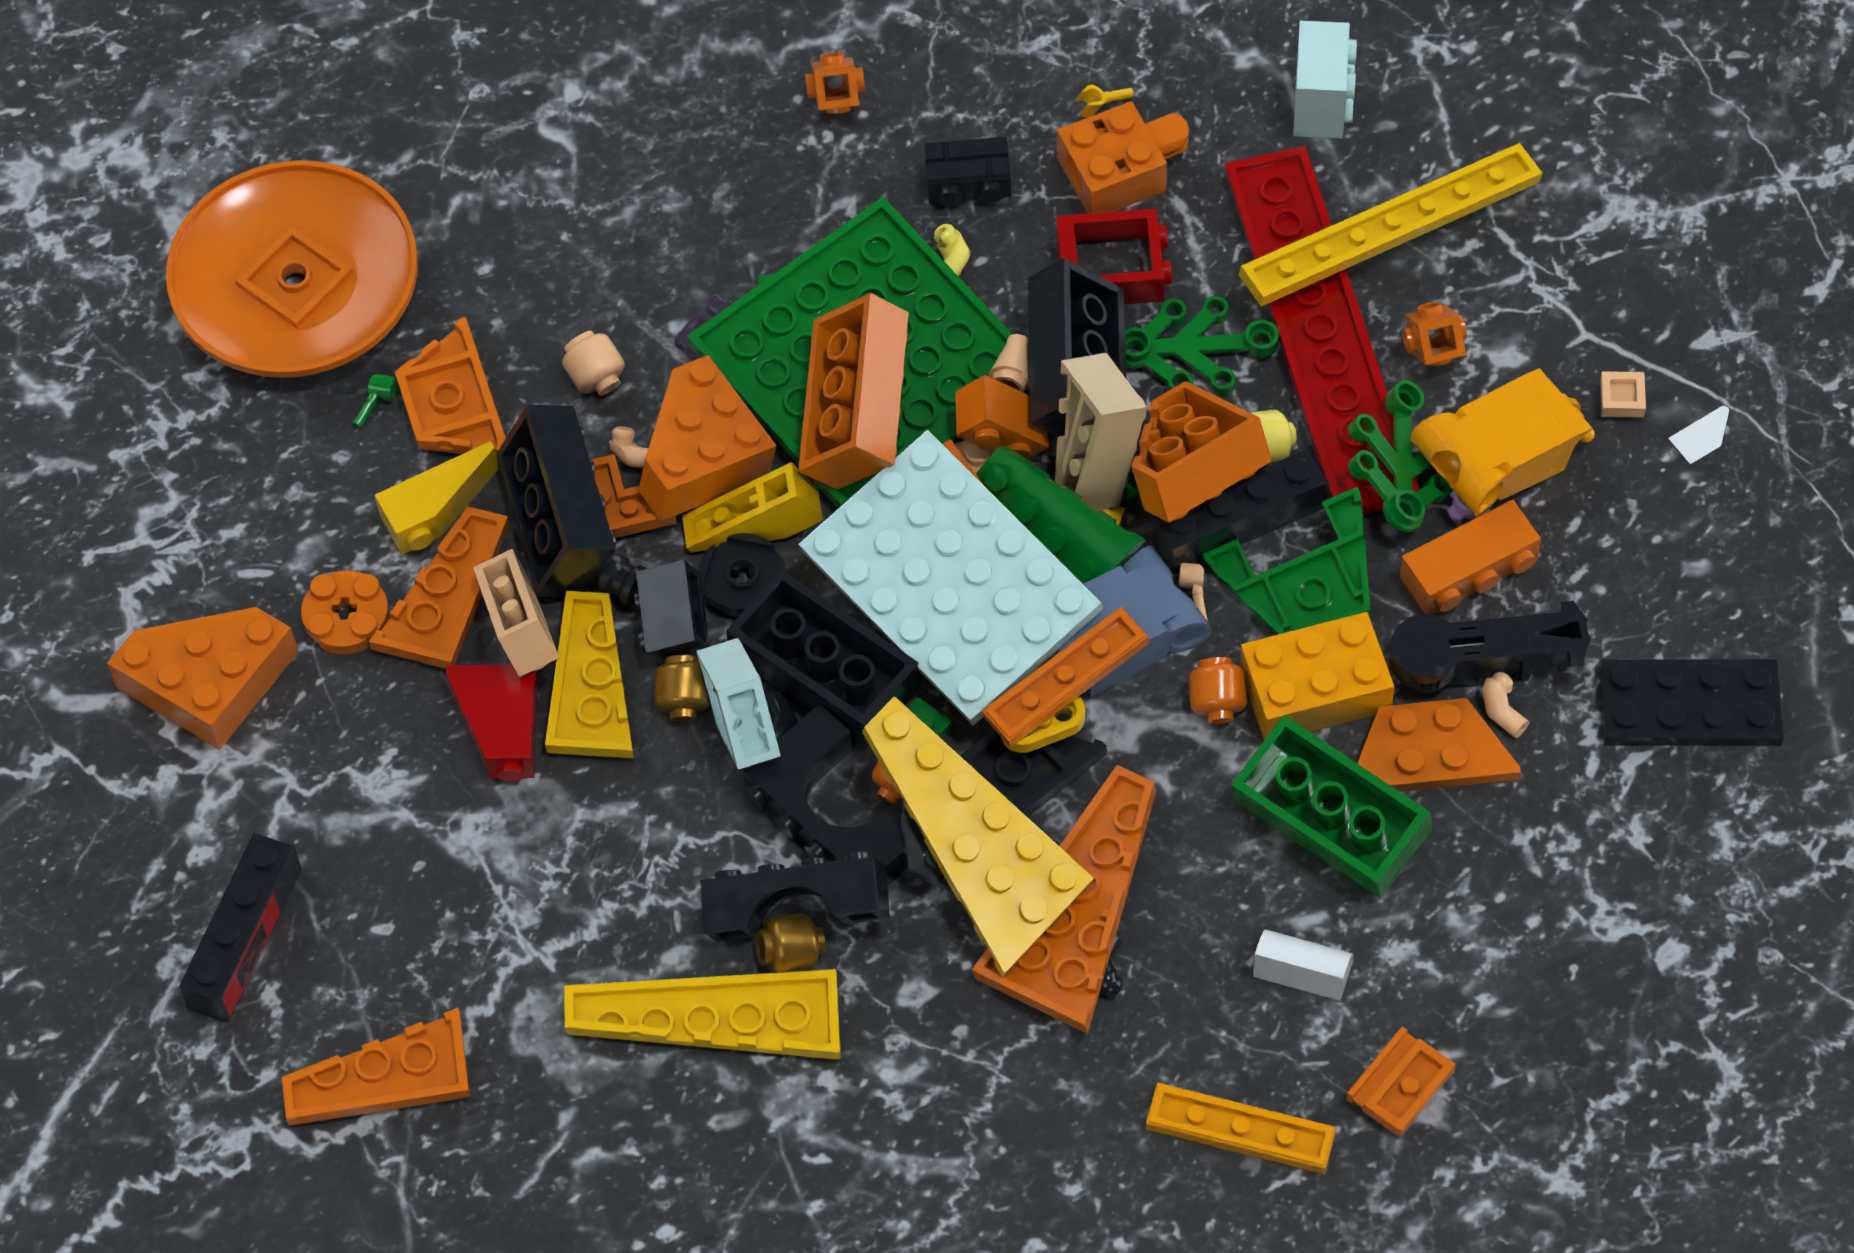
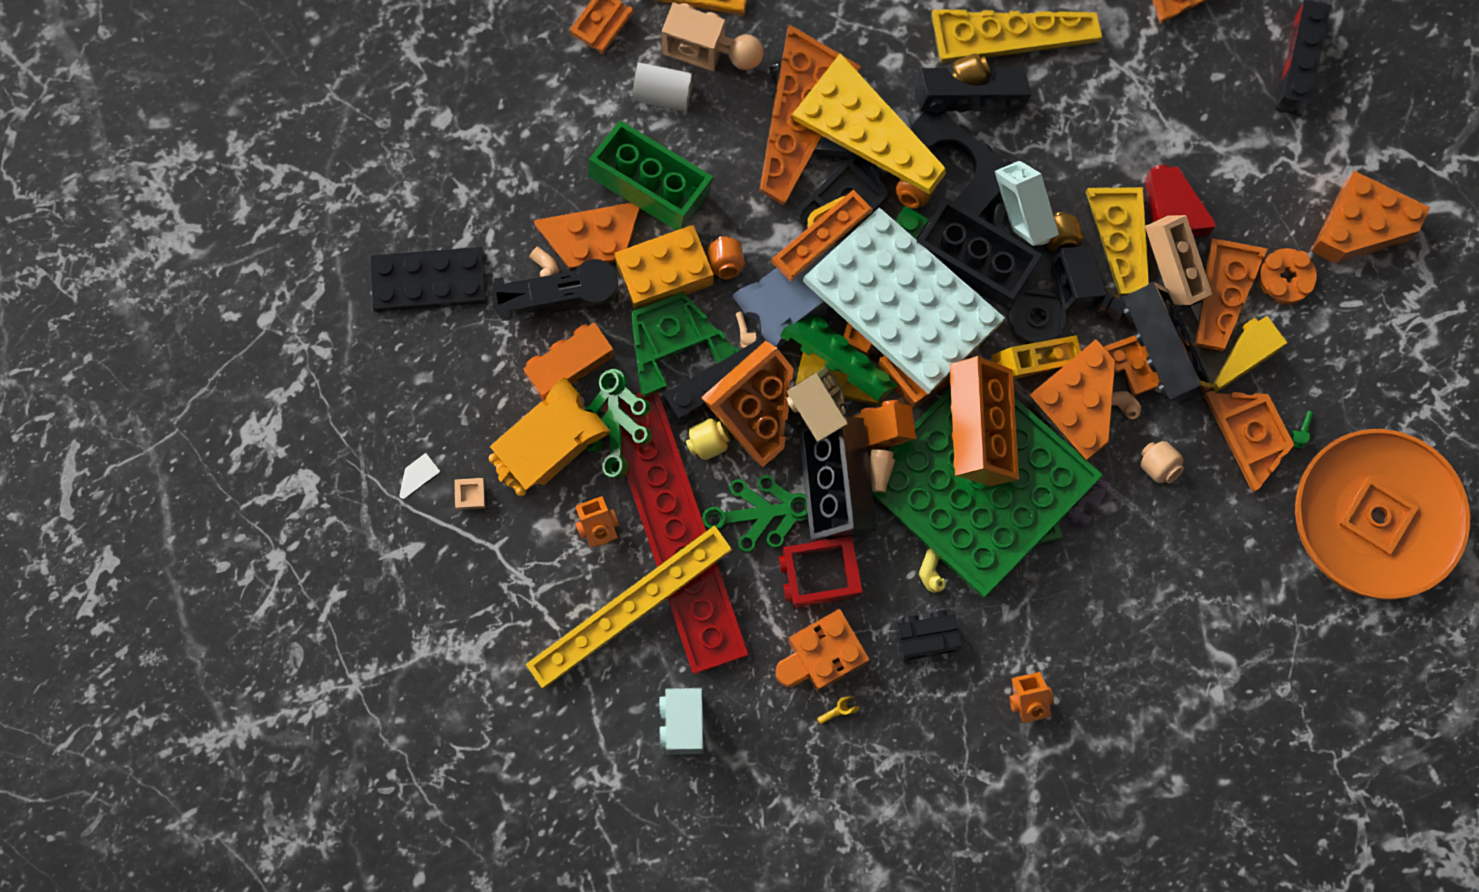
camera: 170 degrees right, 15 degrees up
(1232, 1016) = (701, 40): none -> light nougat brick

